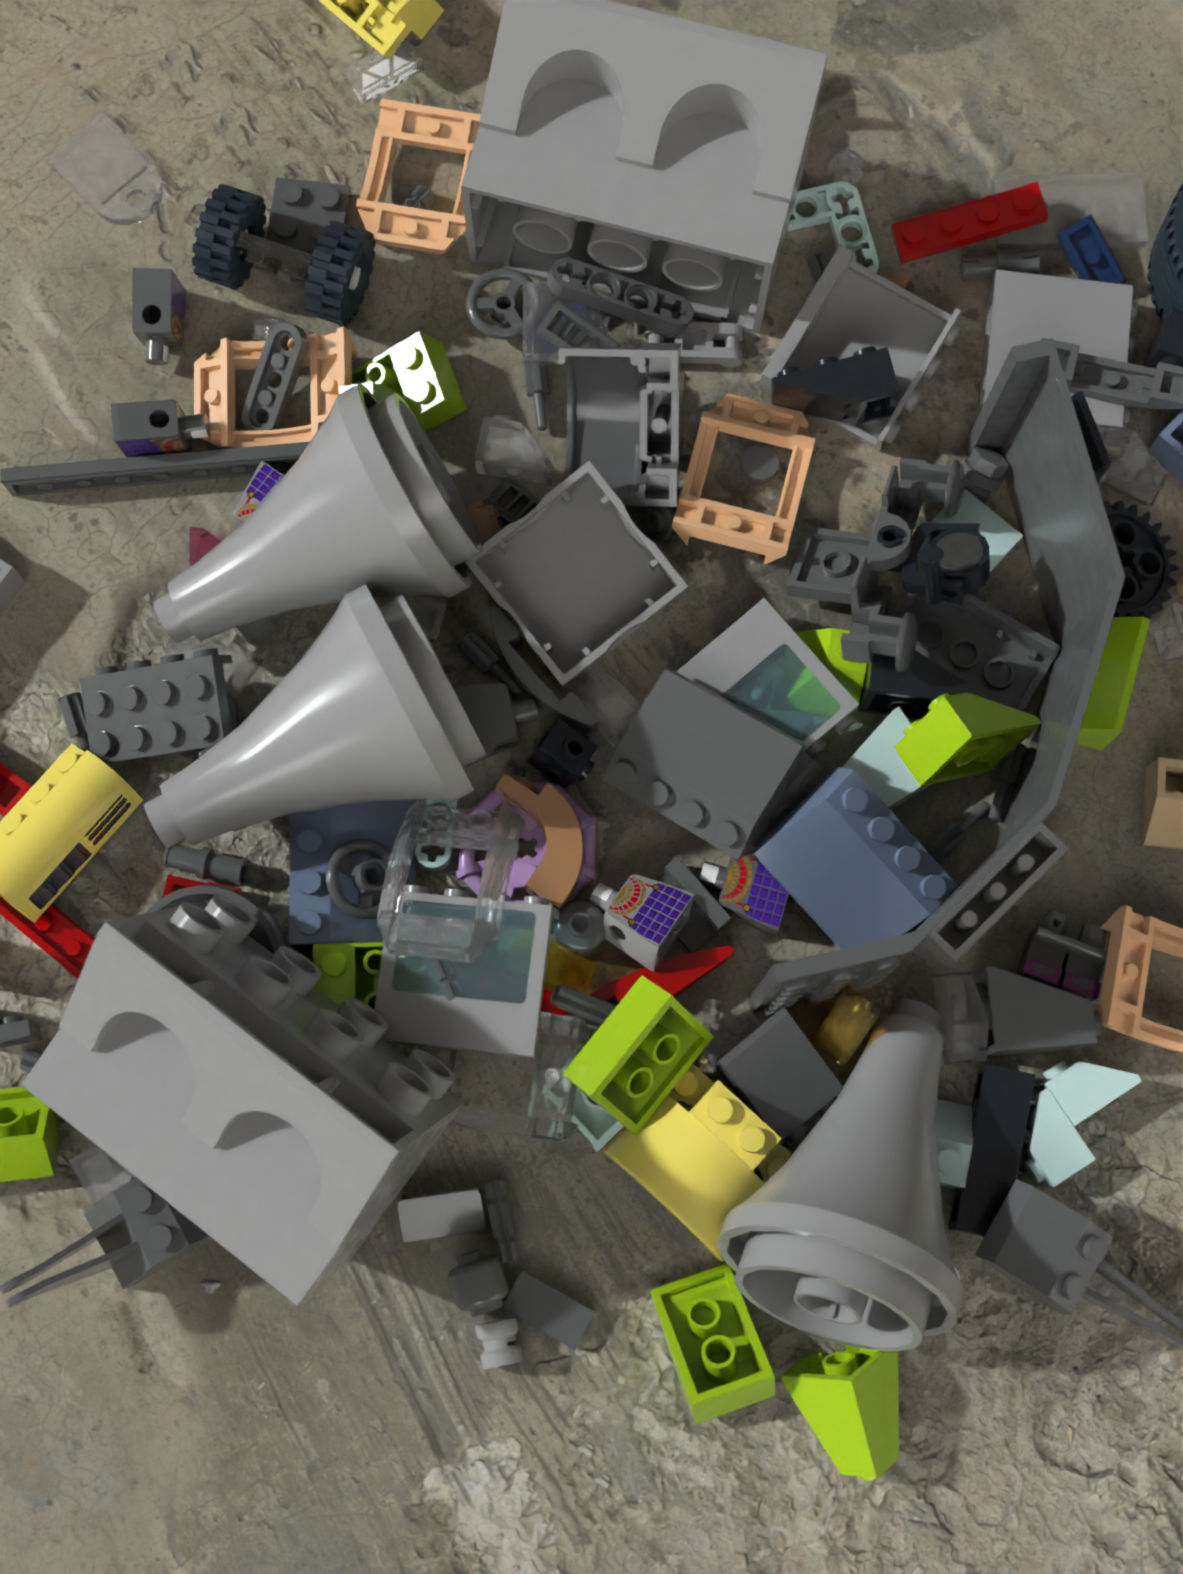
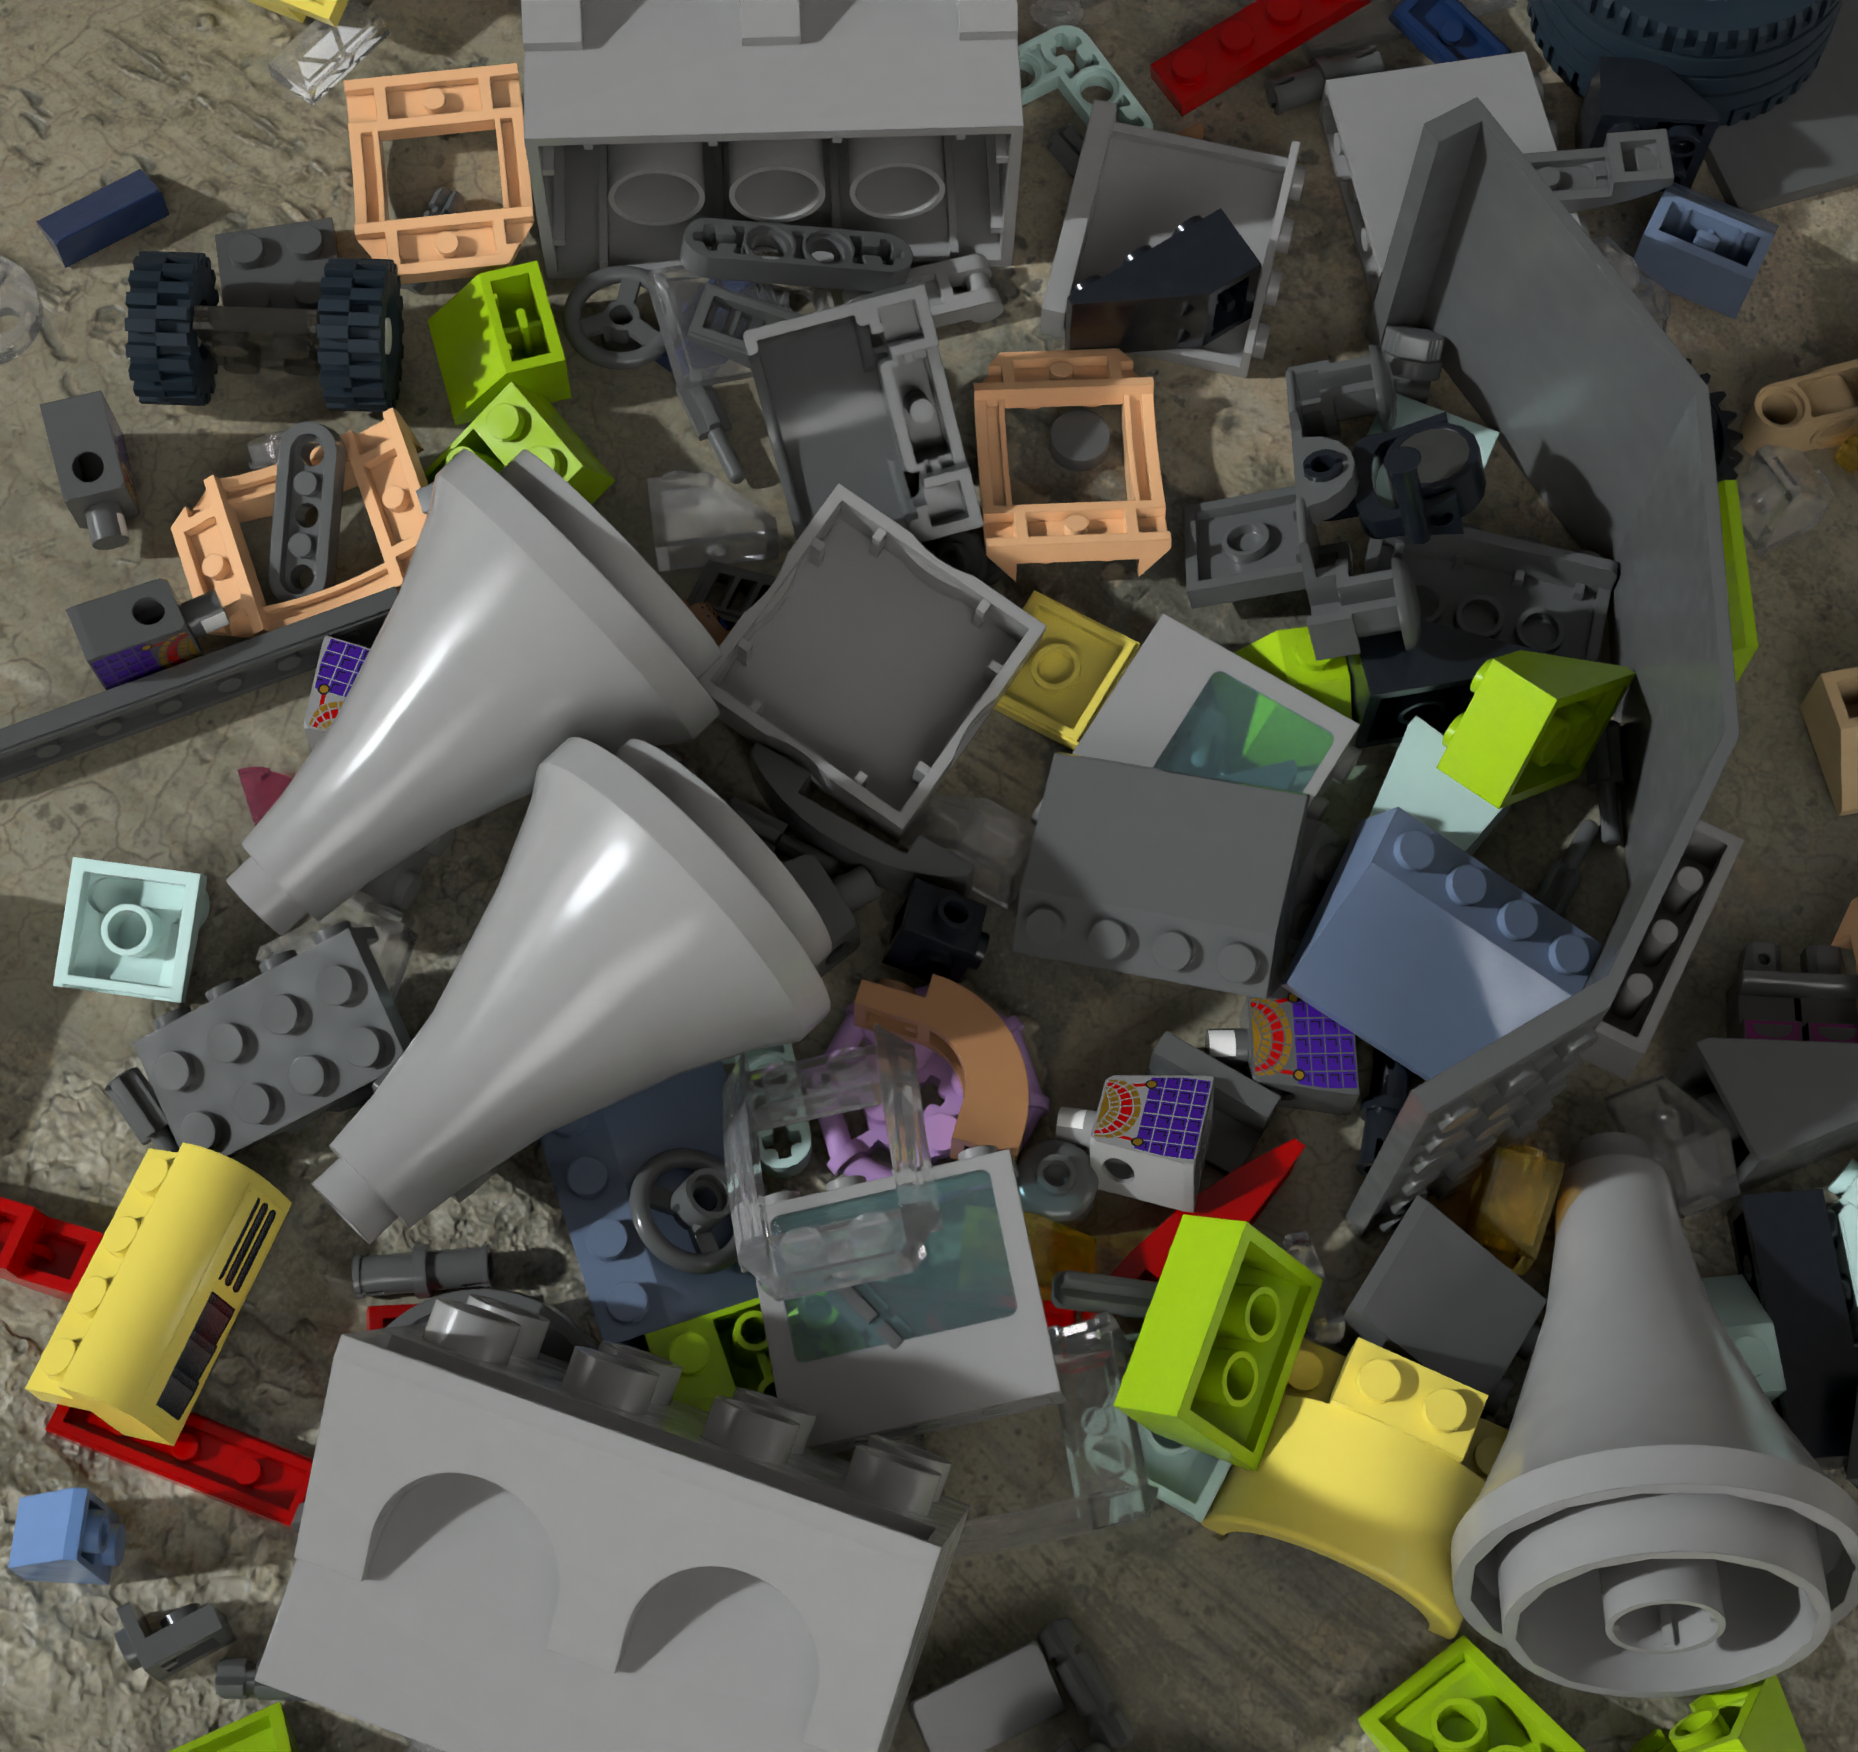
camera: 20 degrees left, 10 degrees down
(99, 607) = (130, 929): none -> light aqua slope
(214, 146) = (103, 217): none -> dark blue slope
(424, 298) = (495, 335): none -> lime slope
(698, 613) = (1067, 673): none -> light yellow plate
(794, 941) = (1381, 1108): none -> black pin

